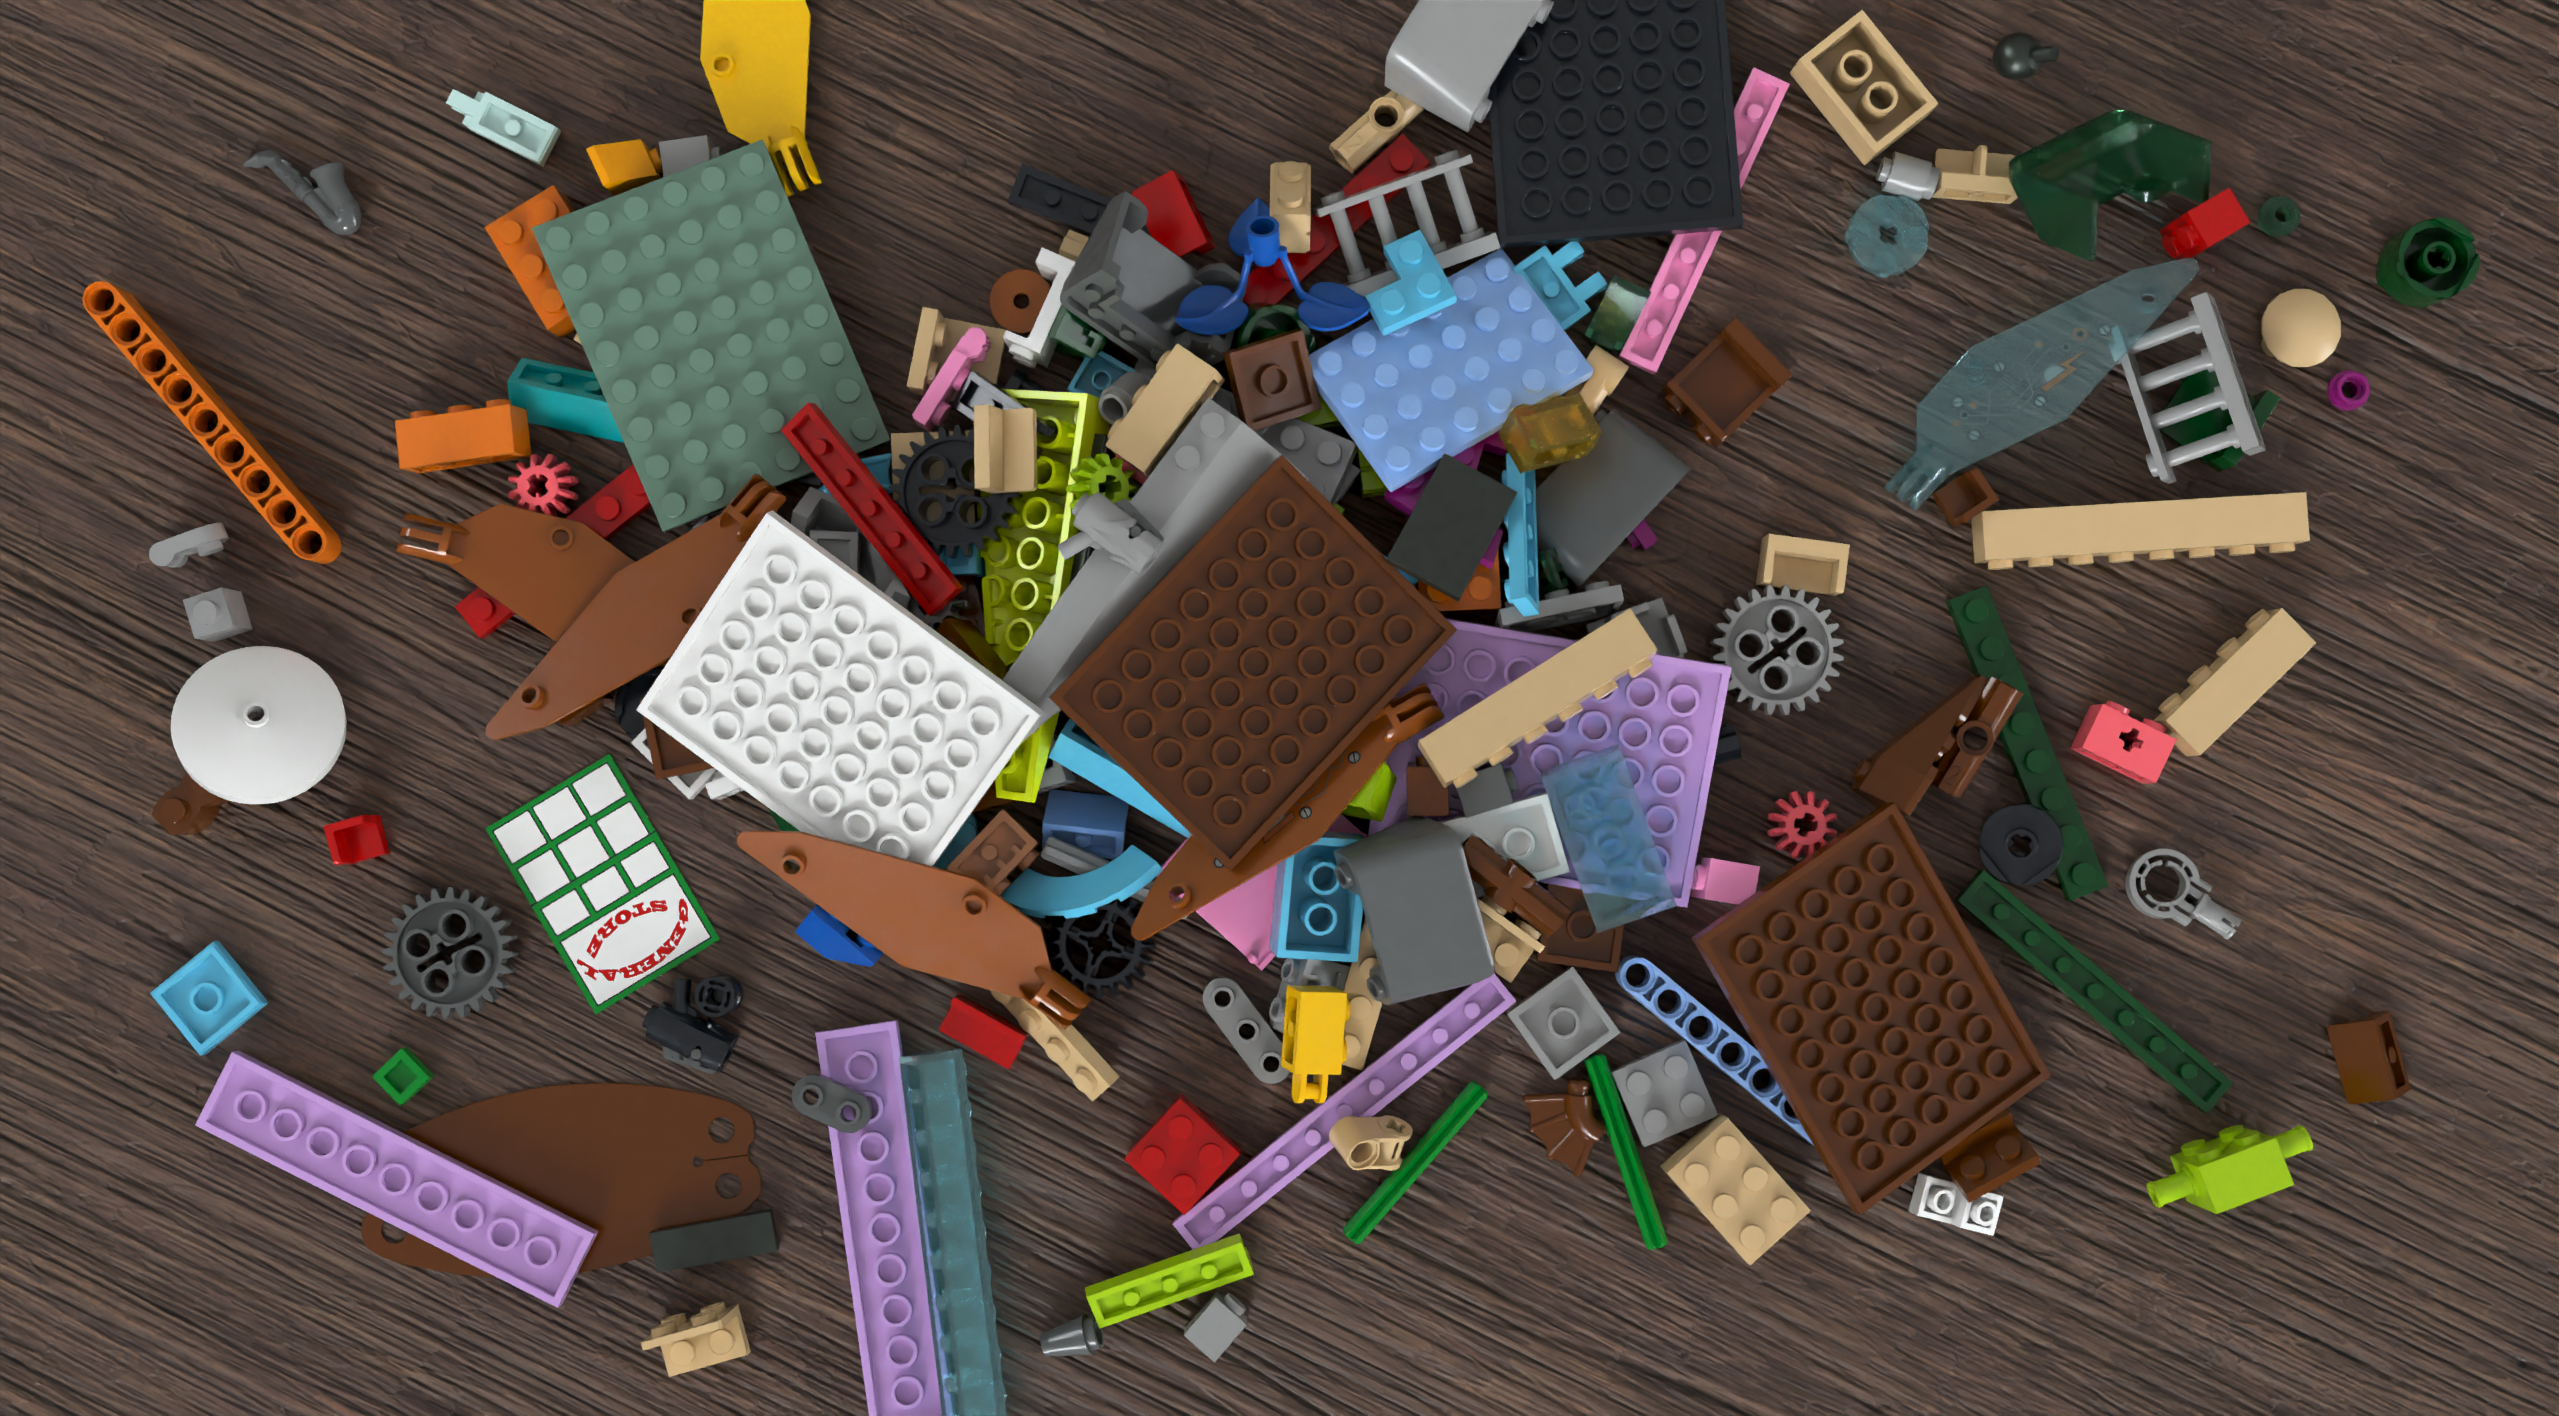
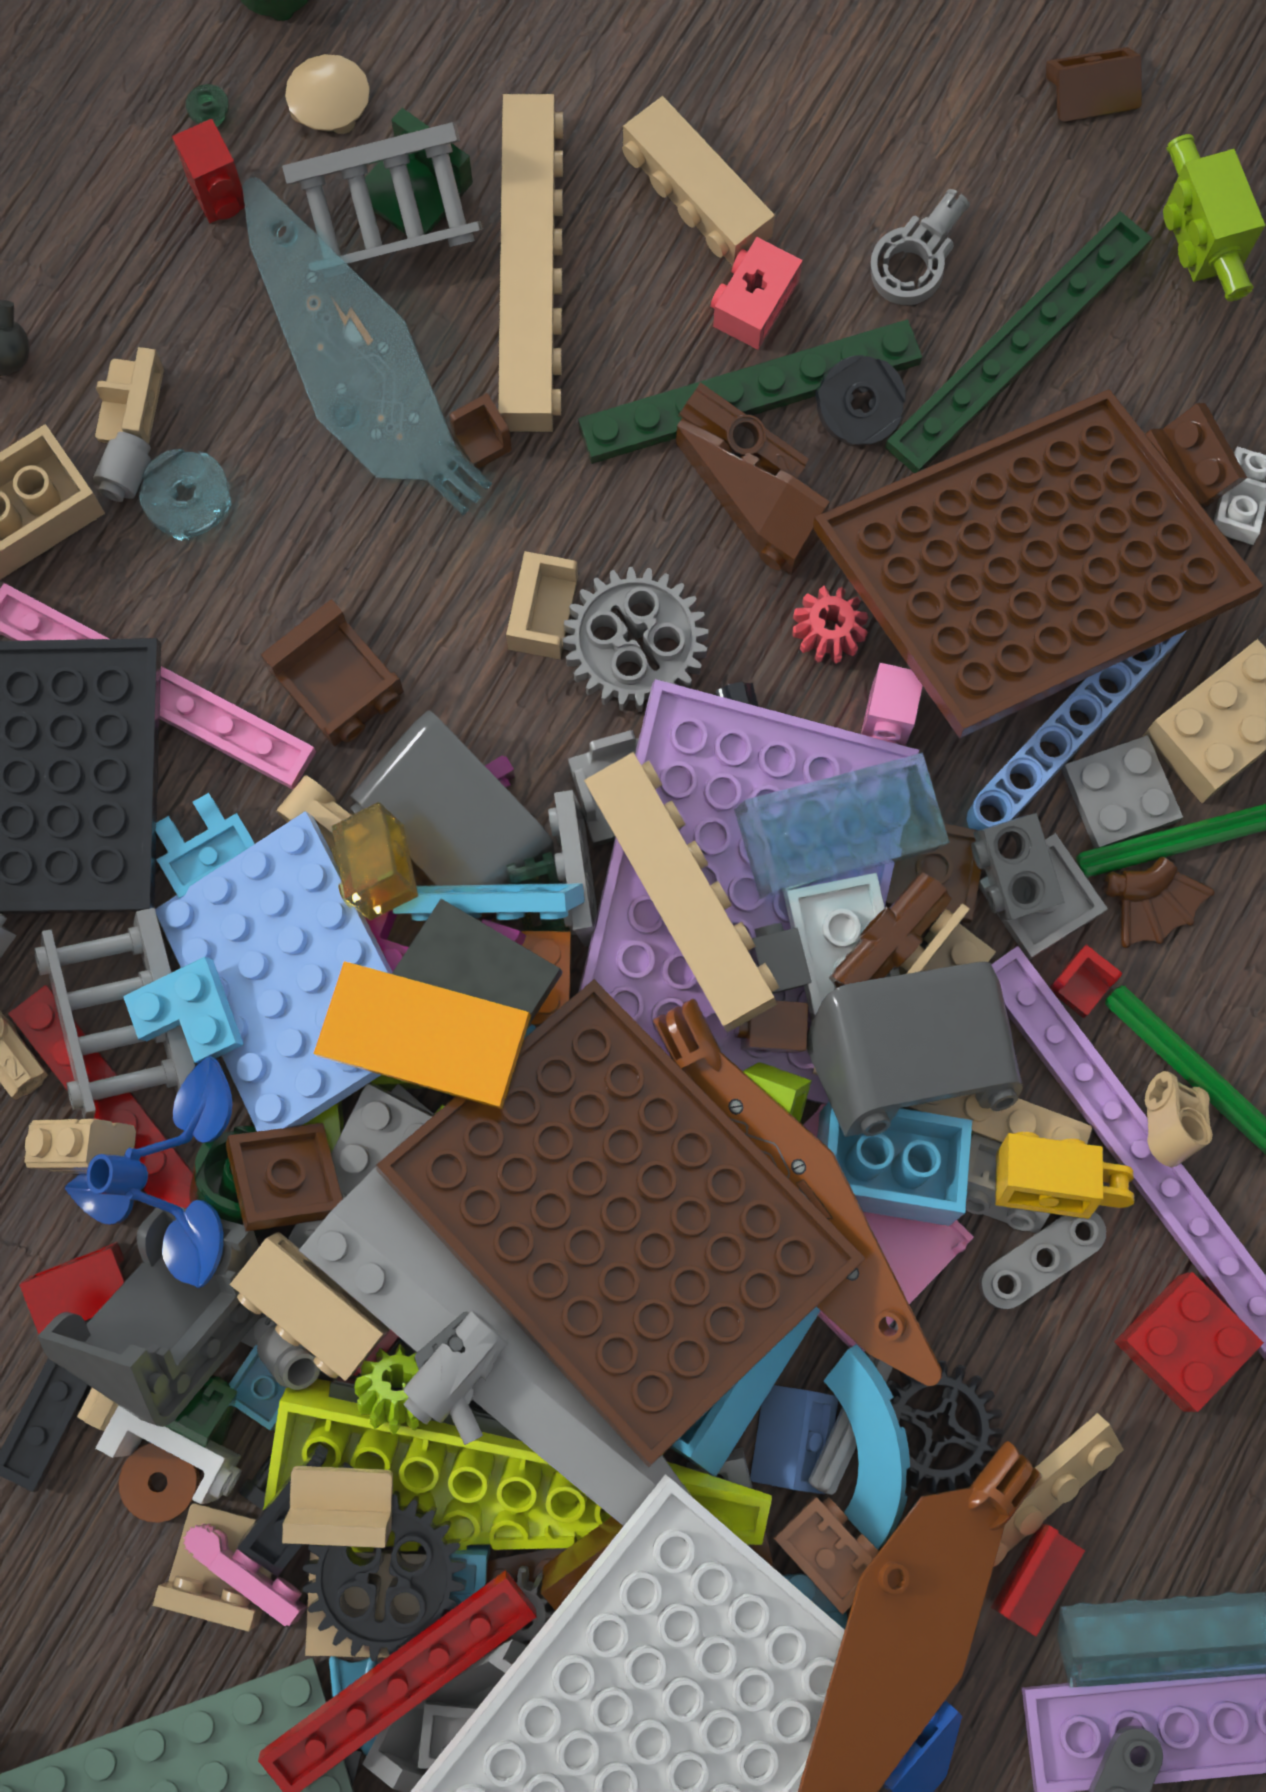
camera: 90 degrees left, 10 degrees down
(1395, 485) = (422, 1034): none -> light orange tile
(1488, 1060) = (1085, 981): none -> red panel
(1587, 1005) = (1029, 862): none -> dark grey brick
(1616, 314) = (243, 783): clear green slope -> none
(2098, 161) = (122, 259): clear green windscreen -> none
(2358, 384) = (394, 42): magenta plate -> none

